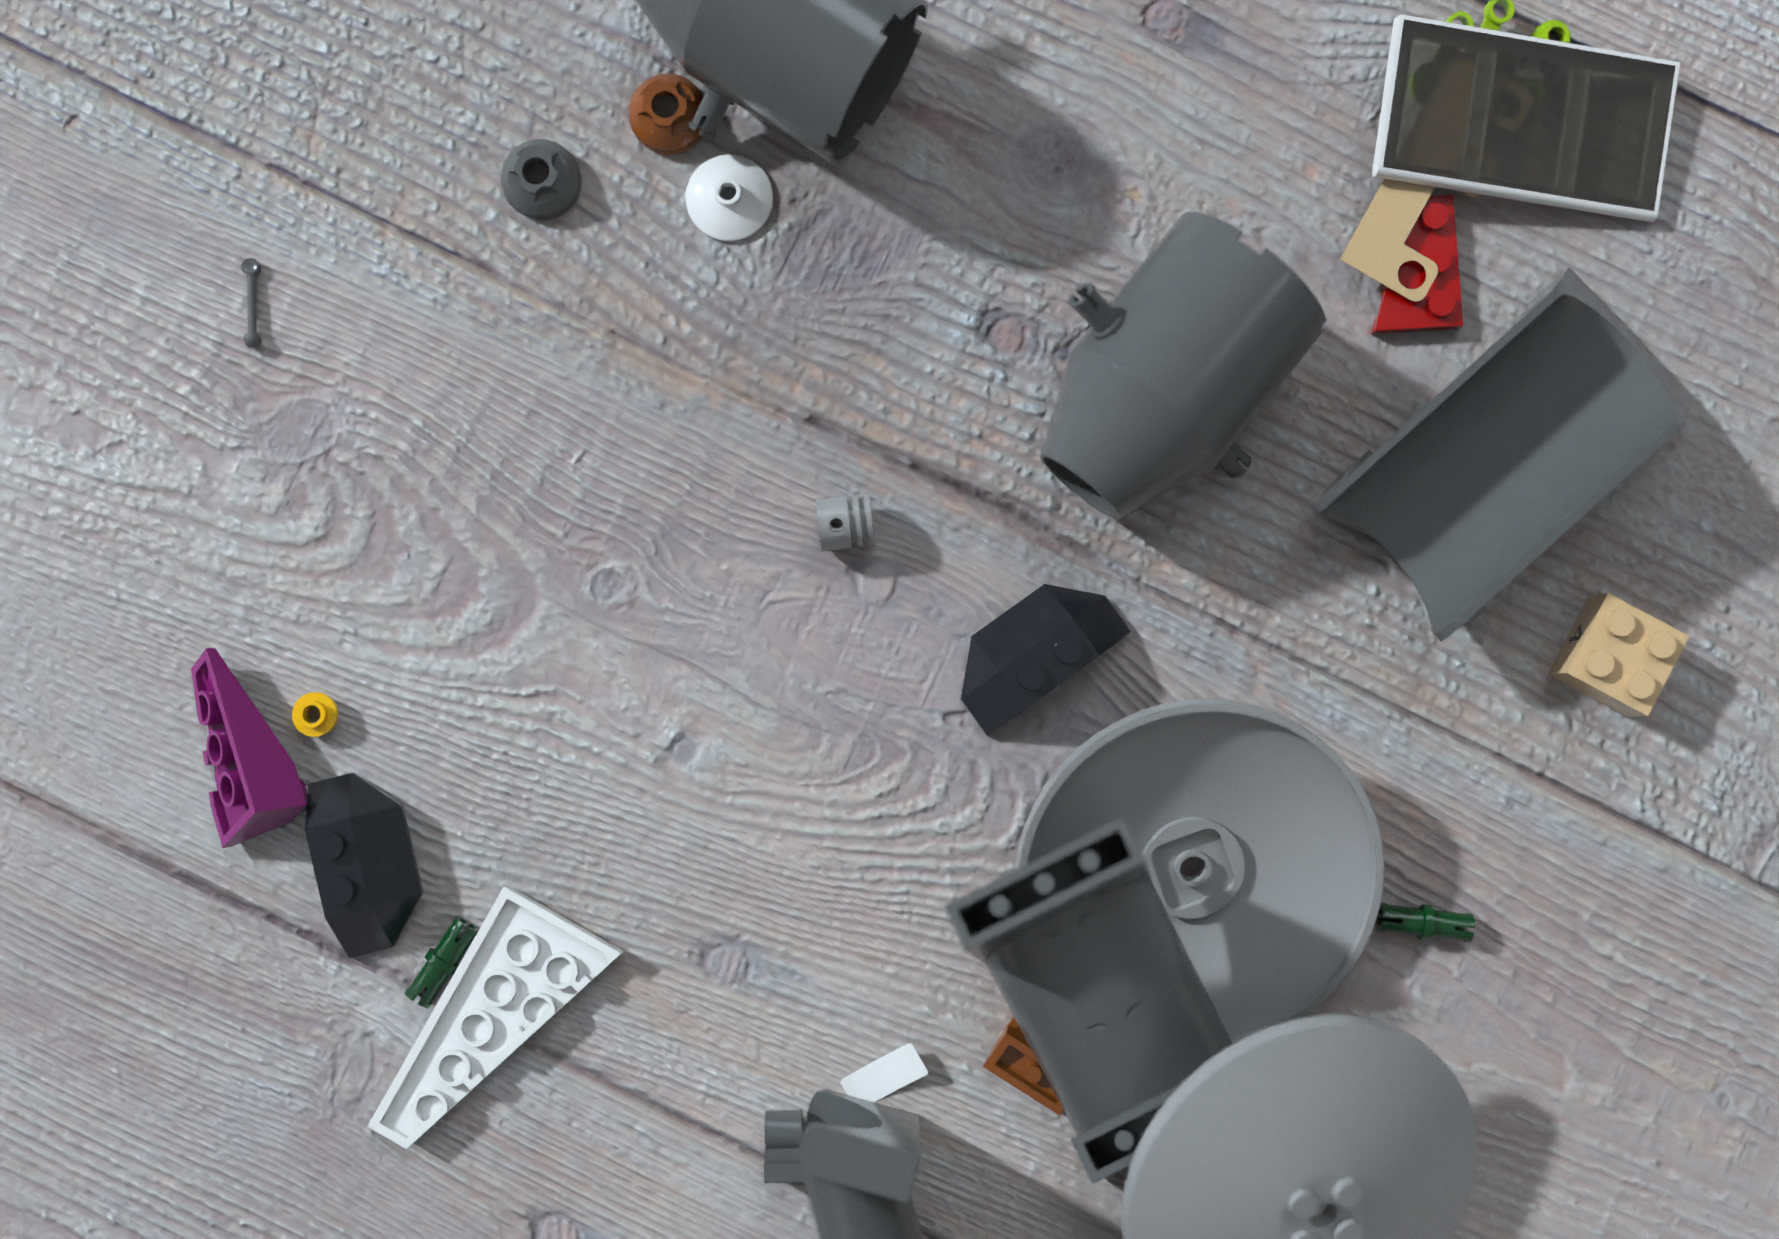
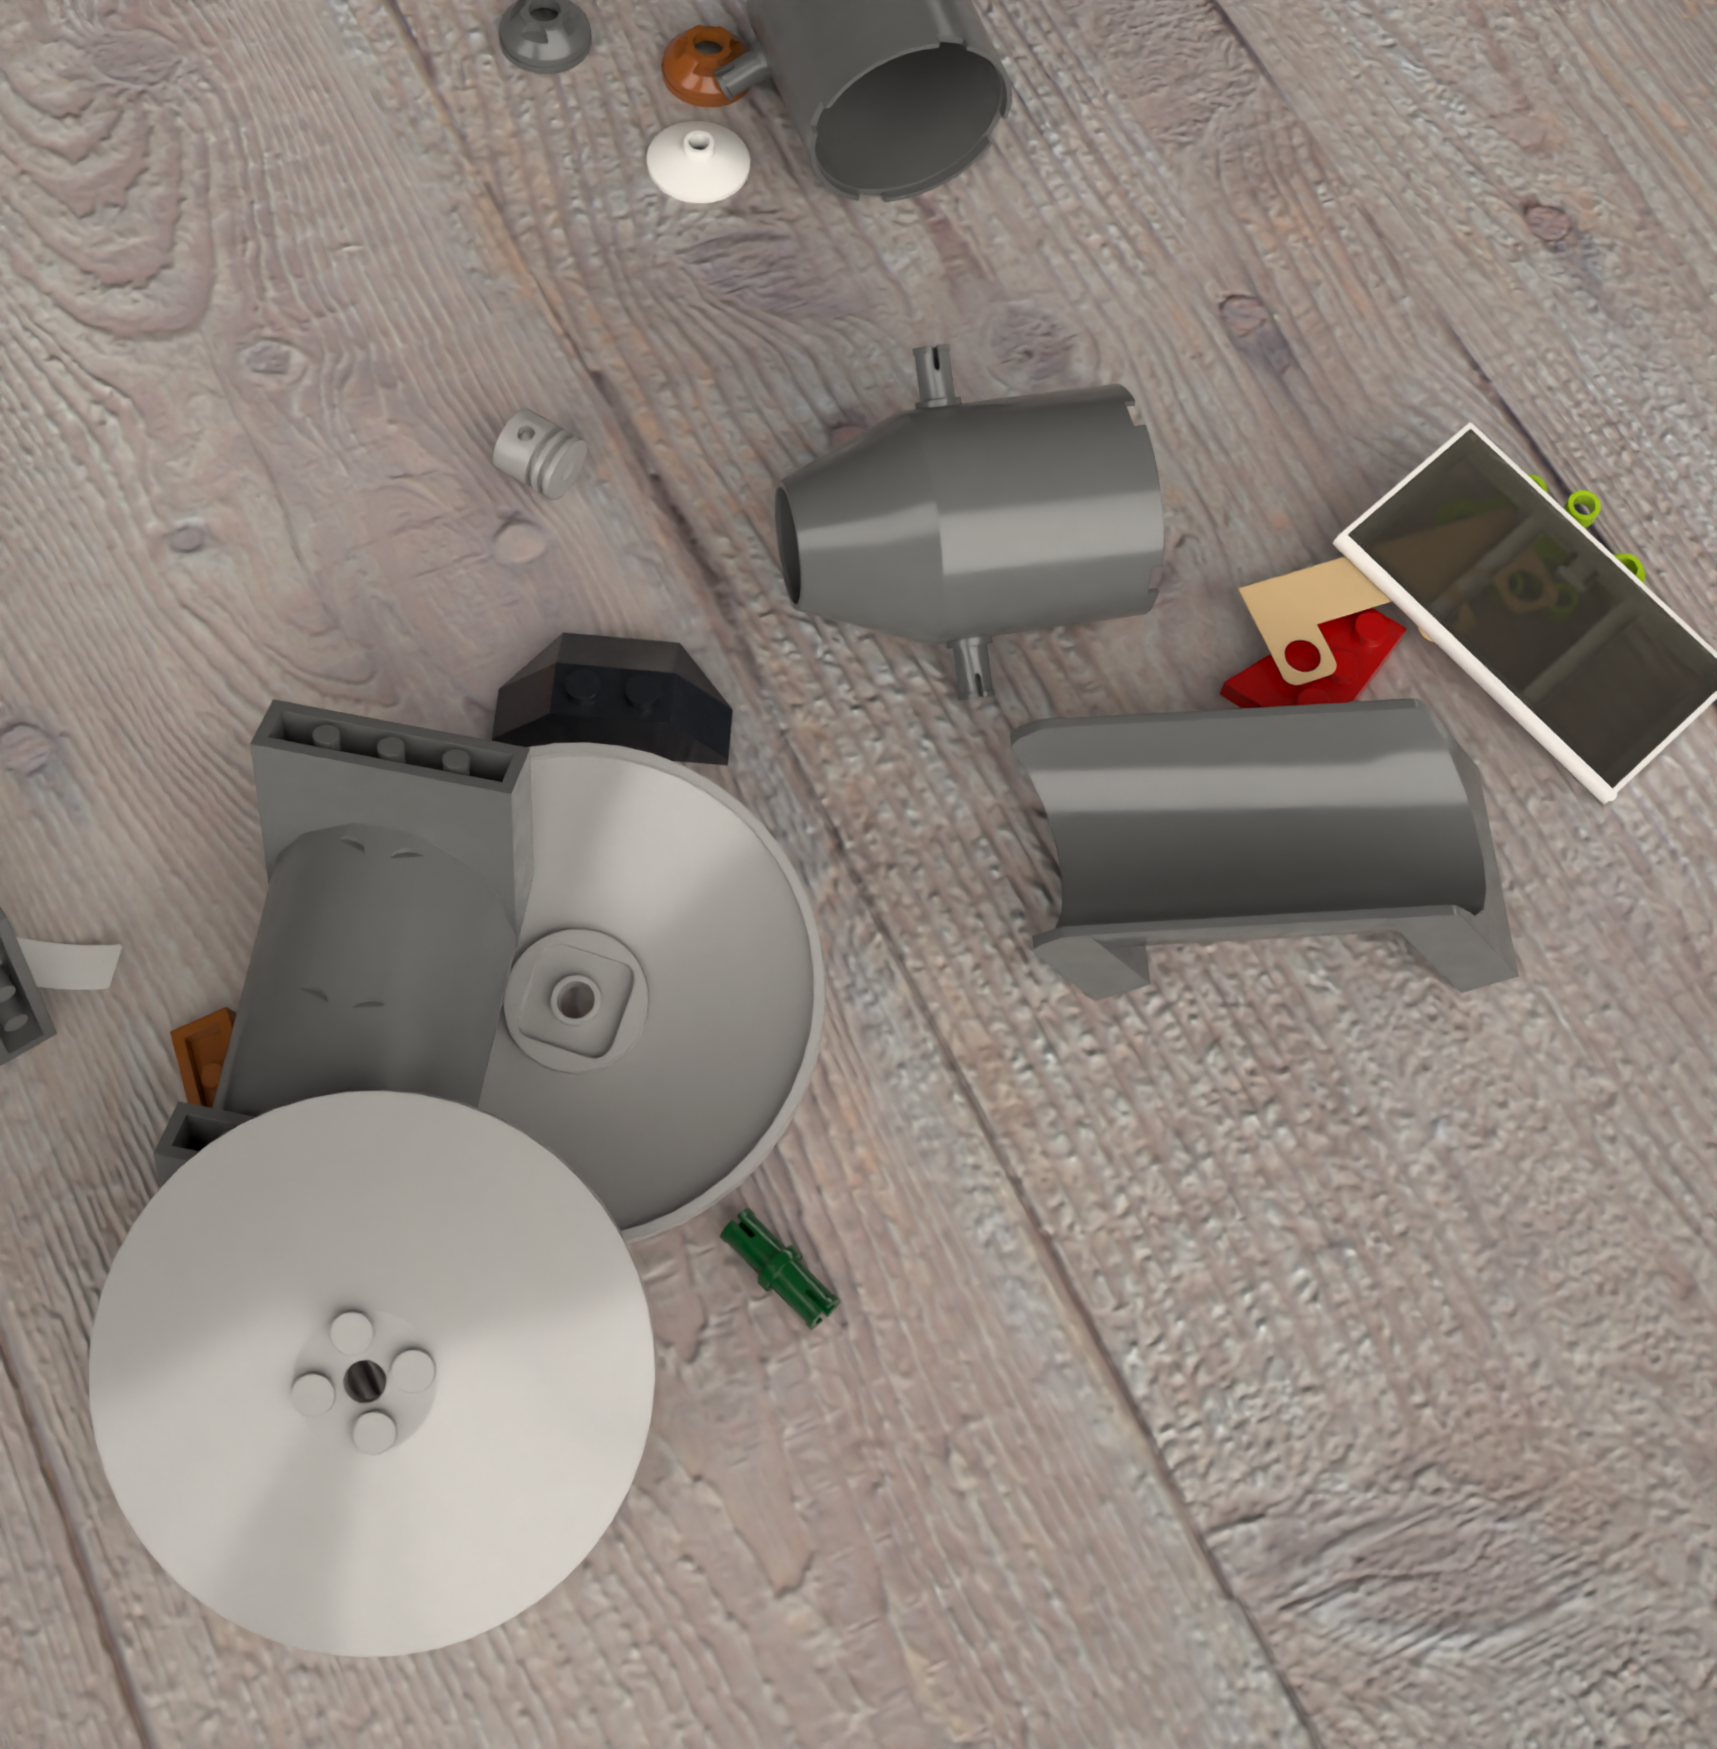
camera: 25 degrees right, 25 degrees down
(1618, 655) = (1230, 1157): tan brick -> none

